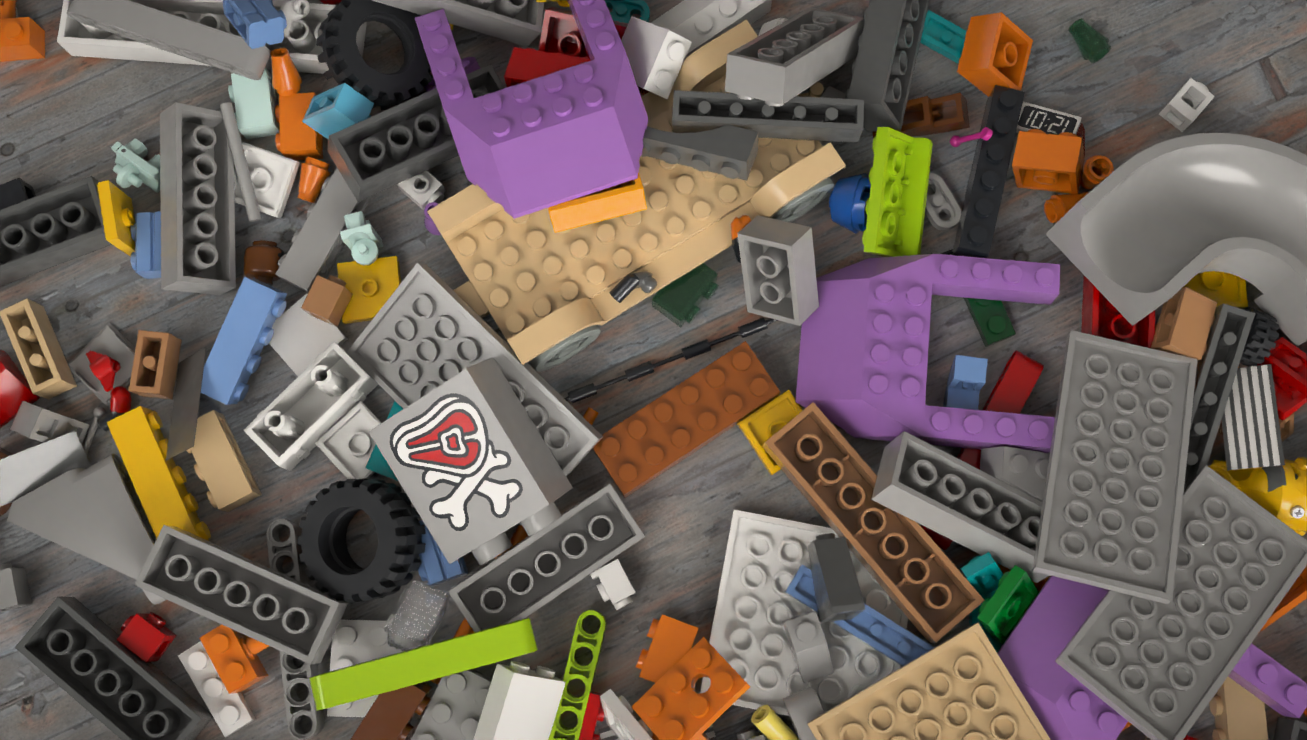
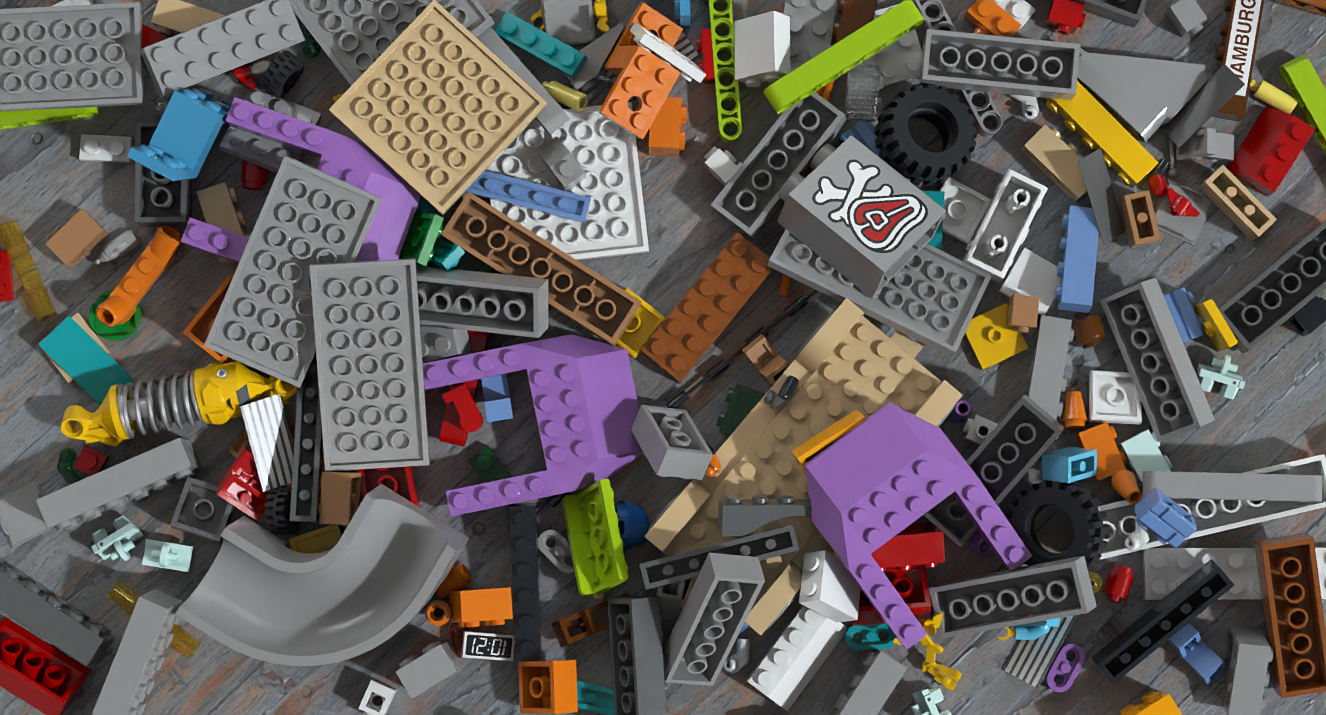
camera: 160 degrees right, 5 degrees up
(231, 538) = (1029, 105): none -> white arm
(240, 161) = (1136, 403): light grey bar -> none
(361, 238) = (1013, 369): light aqua hips -> none
(637, 336) = (765, 360): none -> medium nougat brick
(834, 579) = (558, 215): dark grey slope -> none
(985, 134) = (538, 609): dark pink hinge -> none
(1005, 385) = (470, 416): none -> red leg
(1127, 107) = (428, 670): none -> light grey brick

